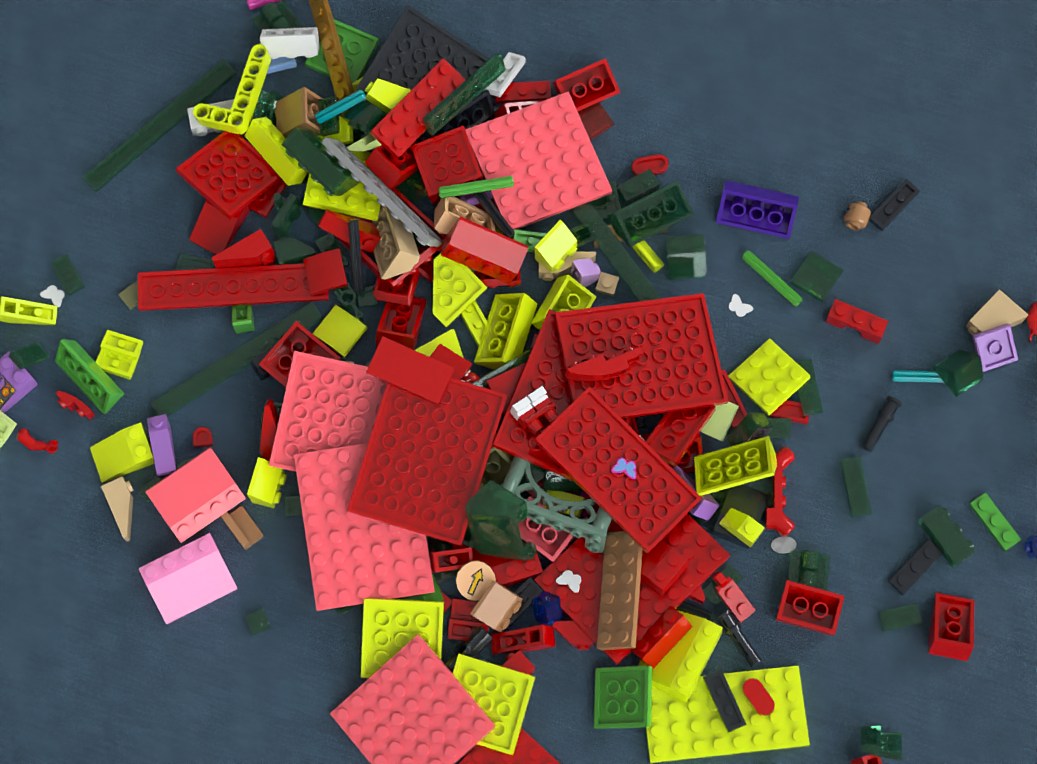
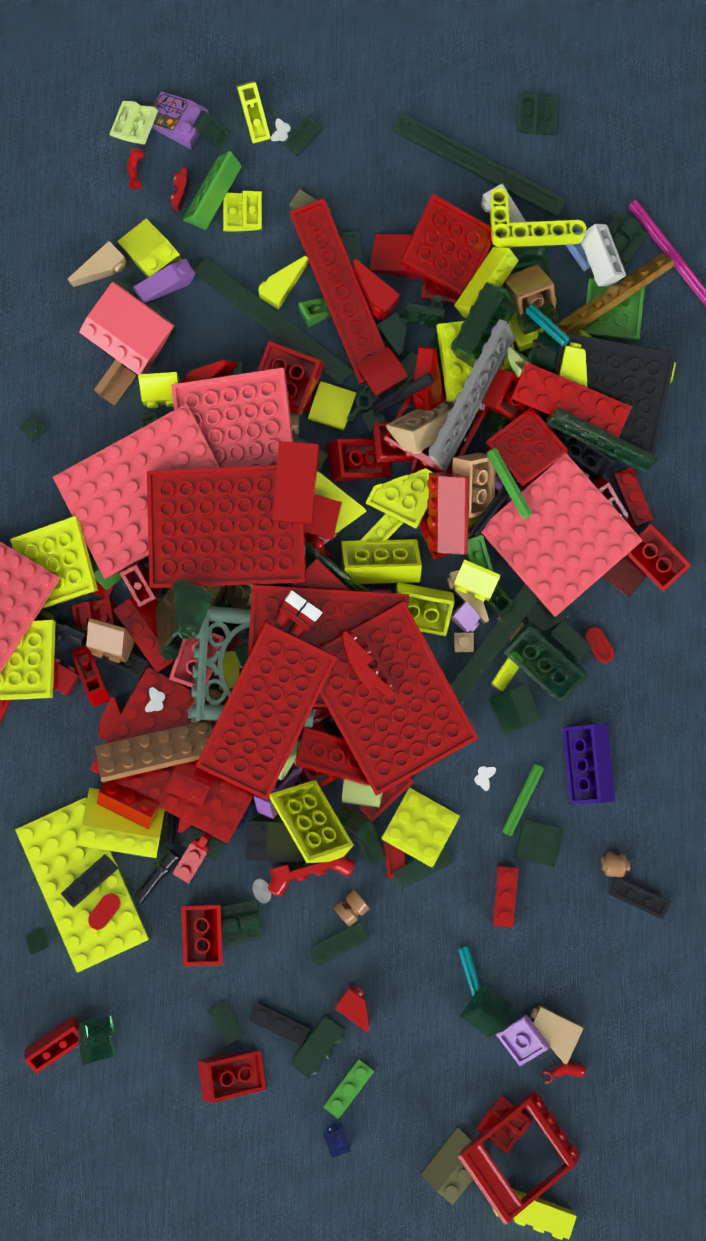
camera: 70 degrees right, 10 degrees up
(132, 58) = (538, 114): none -> clear green slope
(188, 578) = (51, 351): bright pink slope -> none
(202, 437) = (188, 316): red tile -> none
(205, 341) = (280, 284): none -> neon yellow slope
(474, 579) = (125, 612): light nougat tile -> none
(513, 64) = (655, 476): white plate -> none
(547, 608) = (123, 688): clear blue brick -> none
(623, 697) = (63, 785): bright green plate -> none
(624, 466) = (270, 718): medium blue sticker -> none
(742, 526) = (256, 846): neon yellow slope -> none
(824, 457) = (351, 908): none -> medium nougat wheel
(885, 416) = (418, 951): black pin -> none
(919, 487) = (353, 1006): none -> red slope

